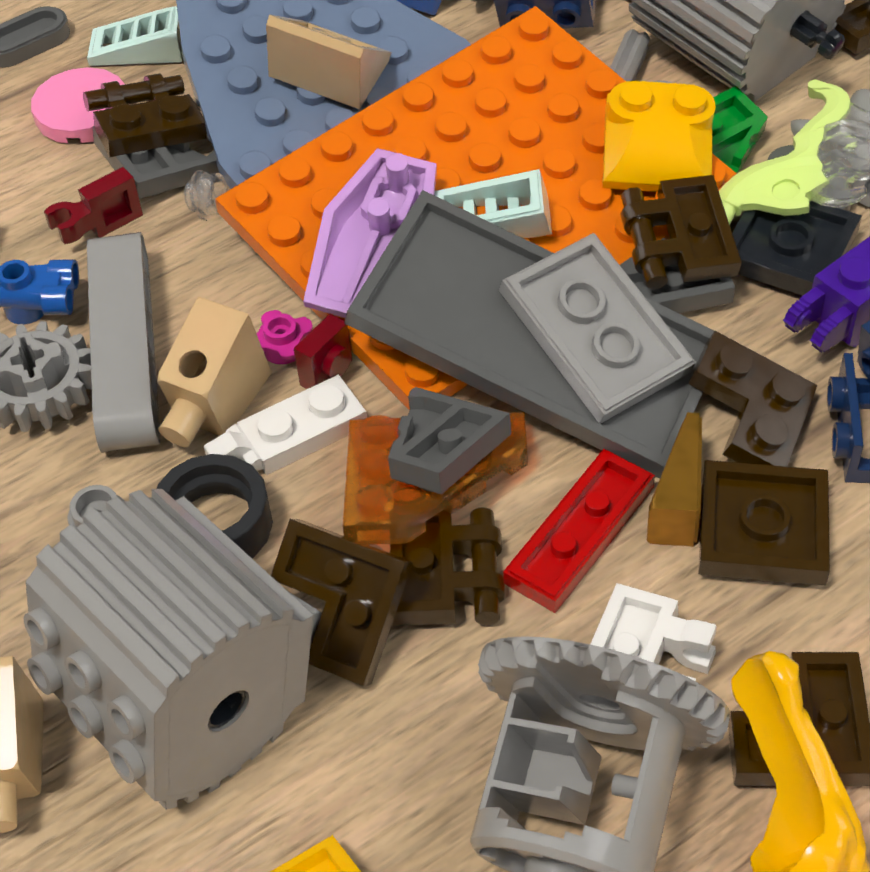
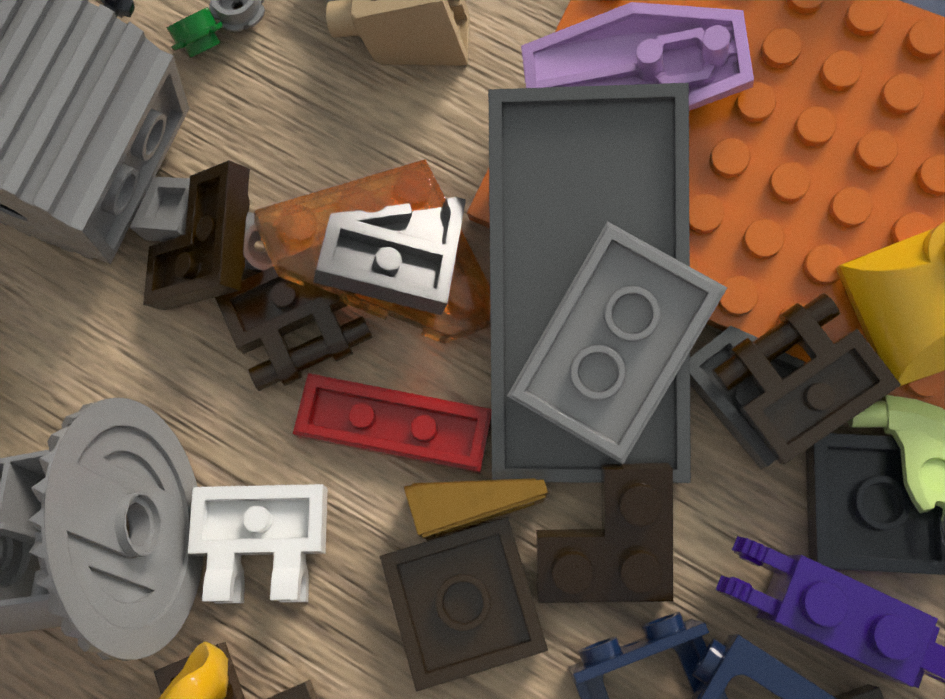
camera: 70 degrees right, 25 degrees up
(226, 475) = (260, 55): black tyre -> none
(281, 334) = (497, 64): dark pink plate -> none
(291, 427) = (398, 111): white hinge -> none
(323, 352) = (473, 93): dark red plate -> none
(512, 190) = (754, 203): light aqua slope -> none

